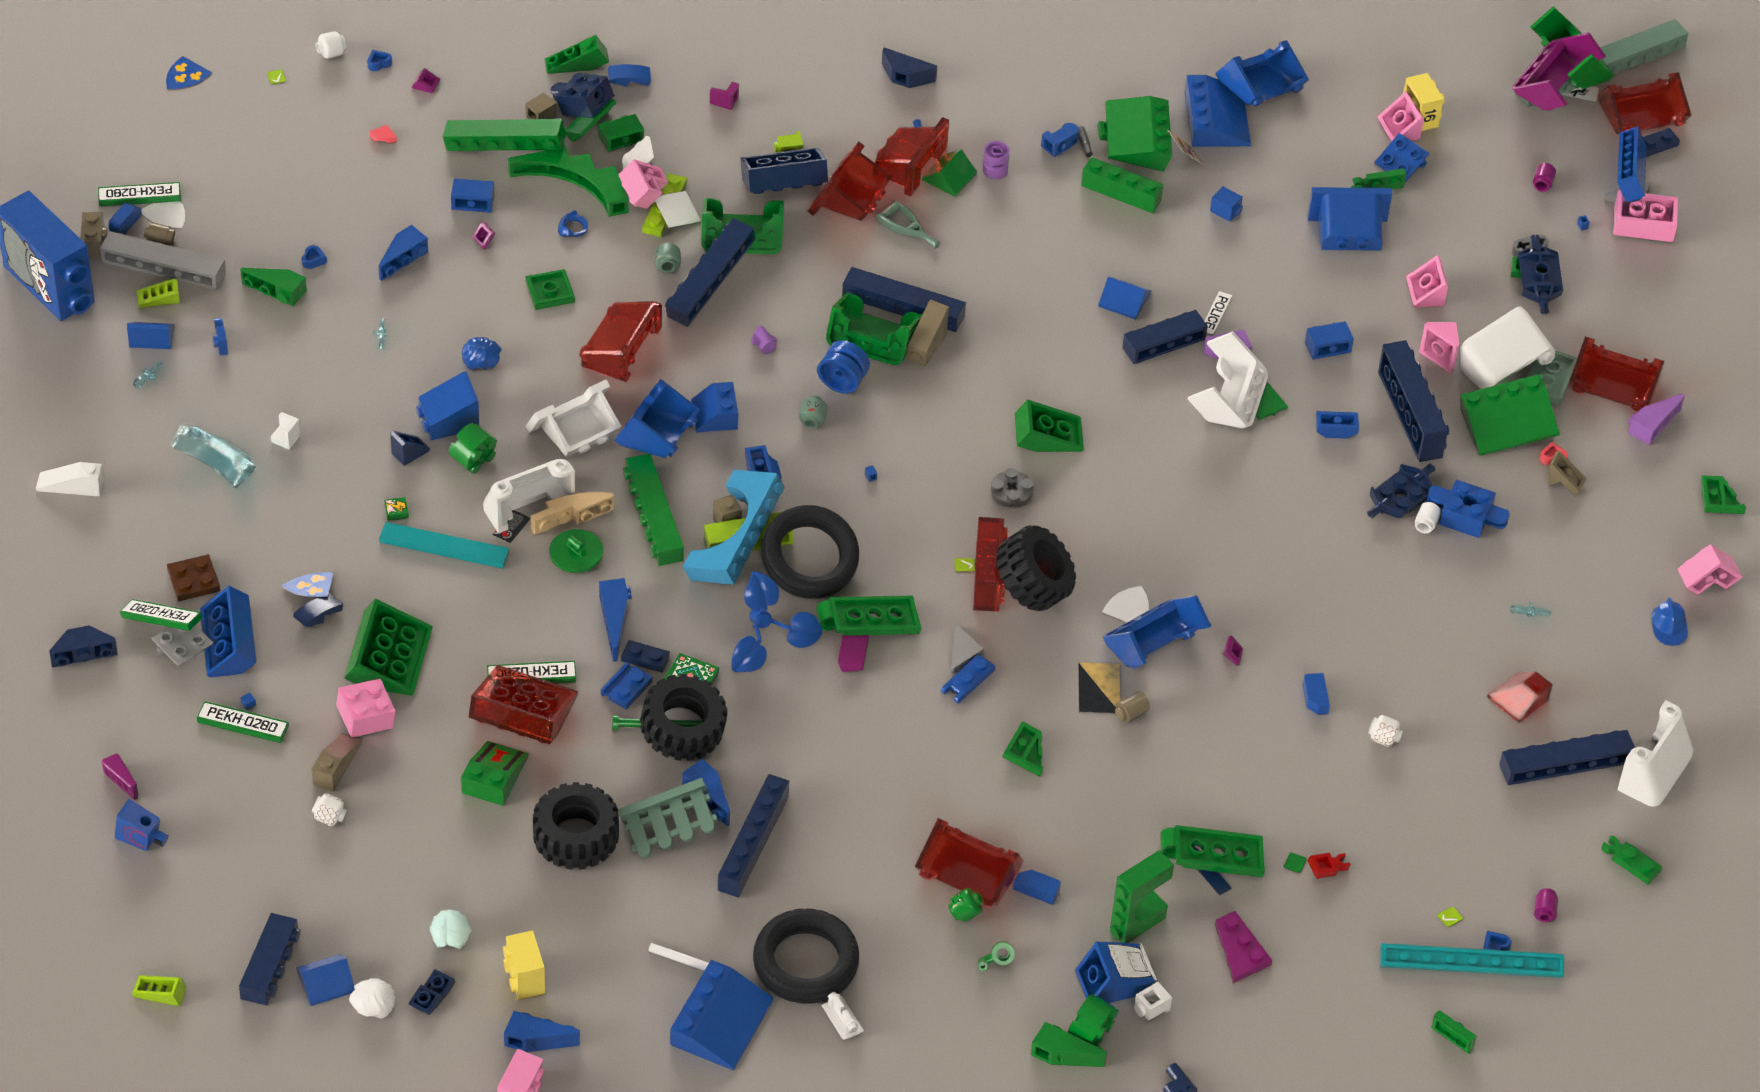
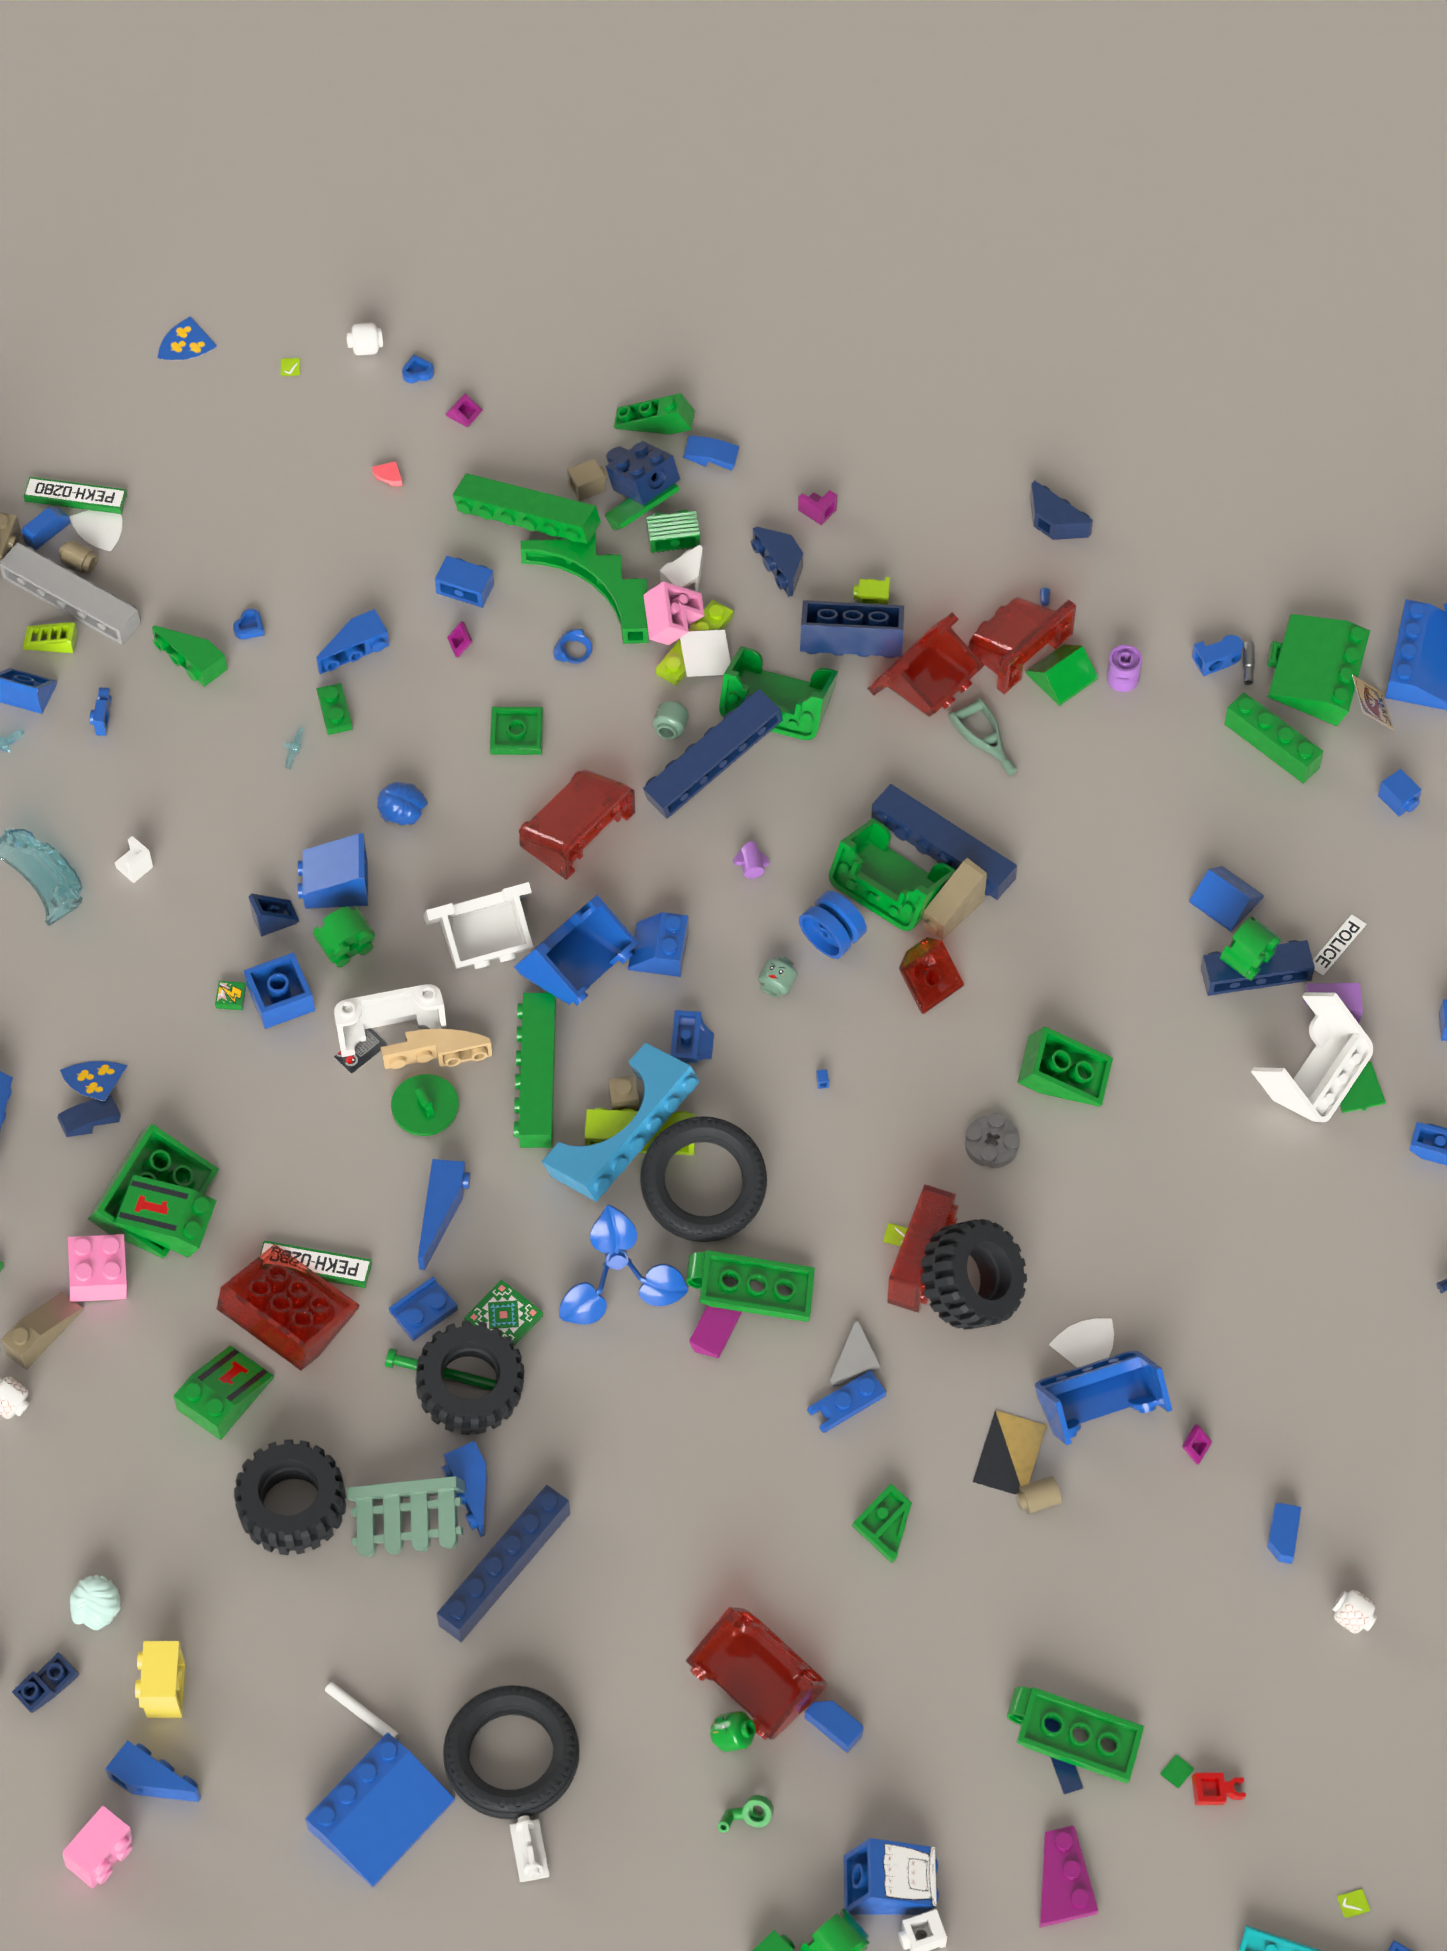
camera: 20 degrees right, 10 degrees up
(402, 301) = (334, 709): none -> green plate
(408, 659) = (165, 1214): none -> green slope
(436, 494) = (279, 990): none -> blue brick
(444, 545) = (270, 1059): teal tile -> none
(645, 656) = (460, 1272): dark blue plate -> none
(708, 133) = (780, 556): none -> dark blue slope
(927, 386) = (929, 973): none -> clear red slope
(1135, 903) = (947, 1789): green arch -> none
(1159, 318) = (1250, 947): none -> brick

